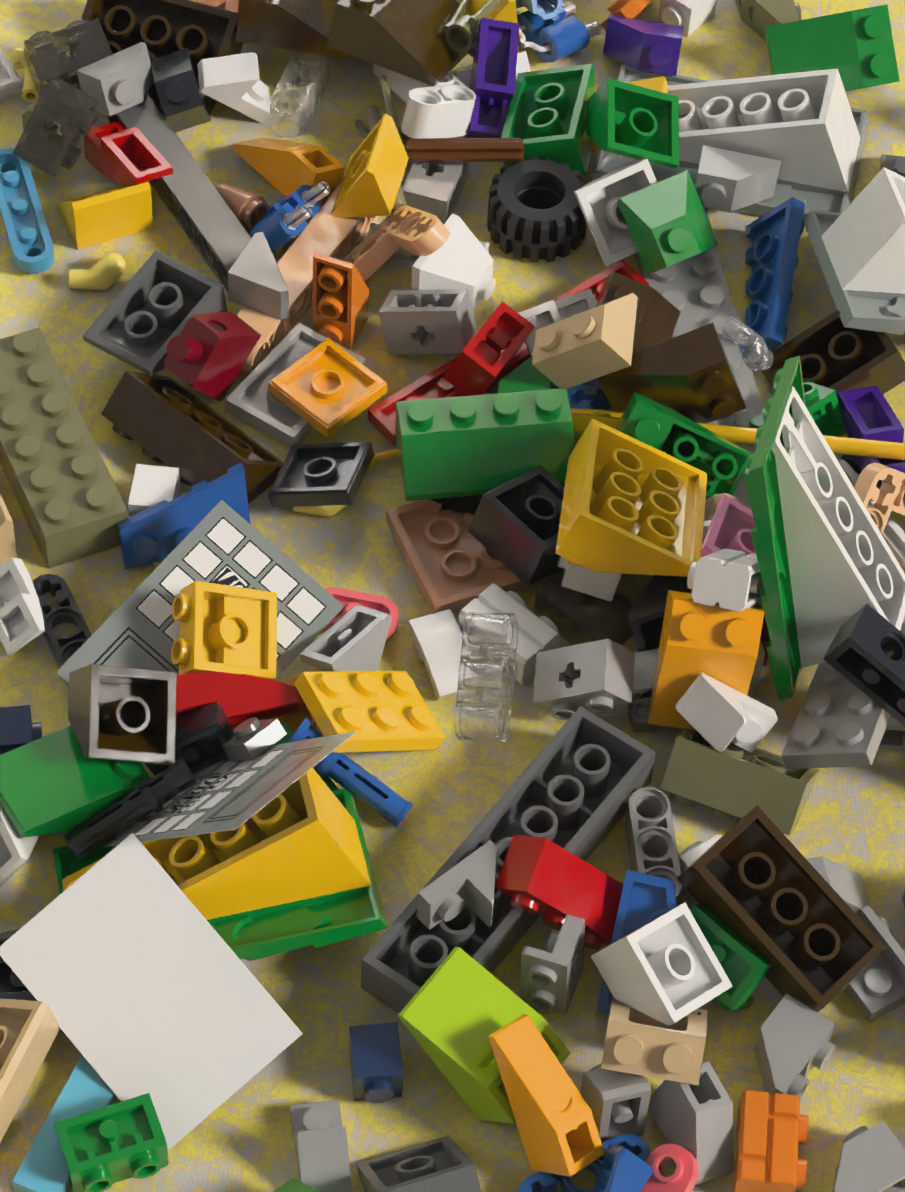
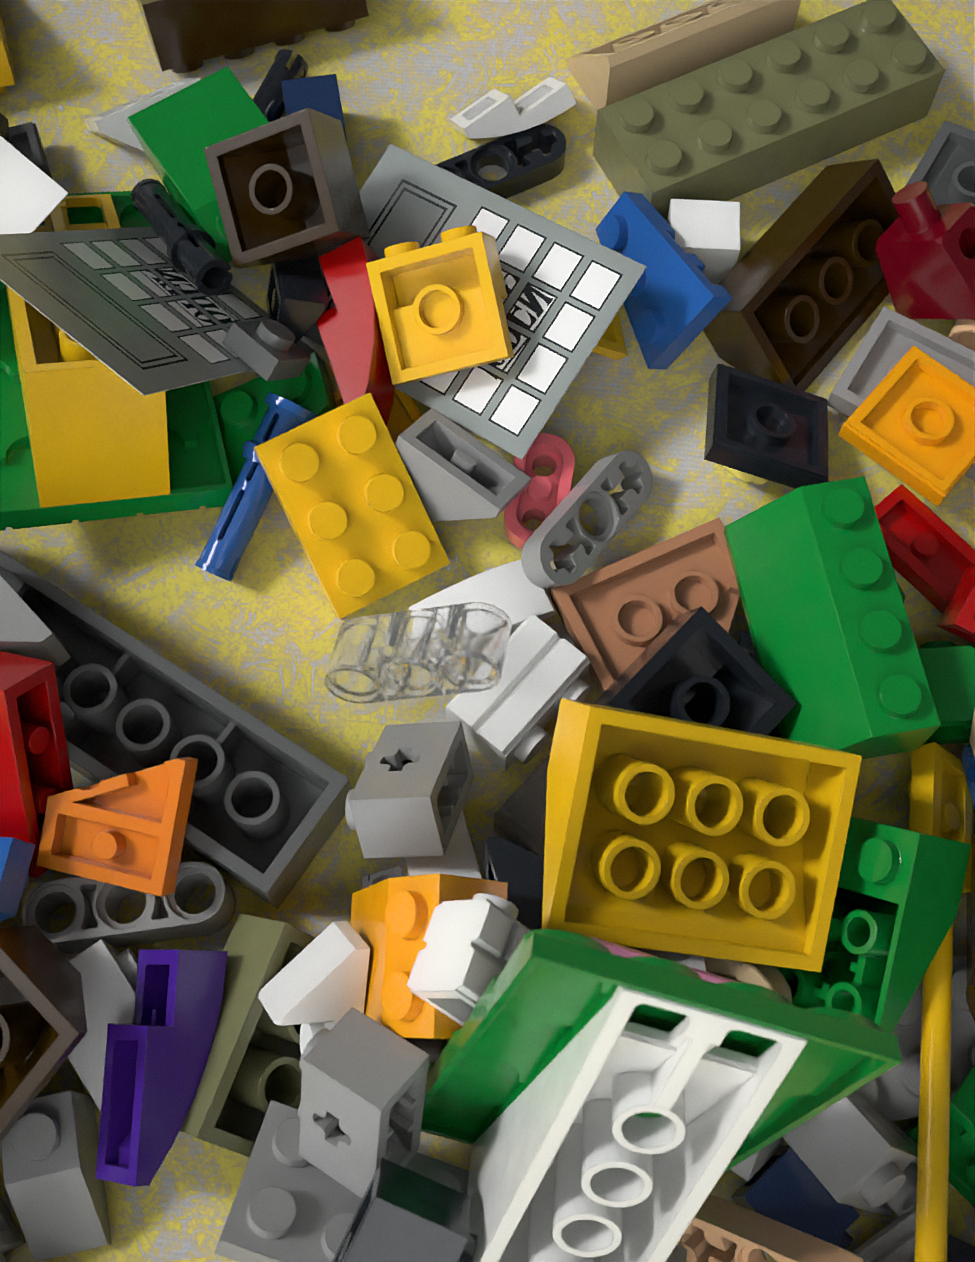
camera: 90 degrees right, 15 degrees up
(384, 582) = (565, 526): none -> light grey beam
(612, 823) = (122, 828): none -> orange wing
(718, 806) = (157, 1061): none -> dark purple slope
(792, 676) = (360, 1099): none -> light grey brick

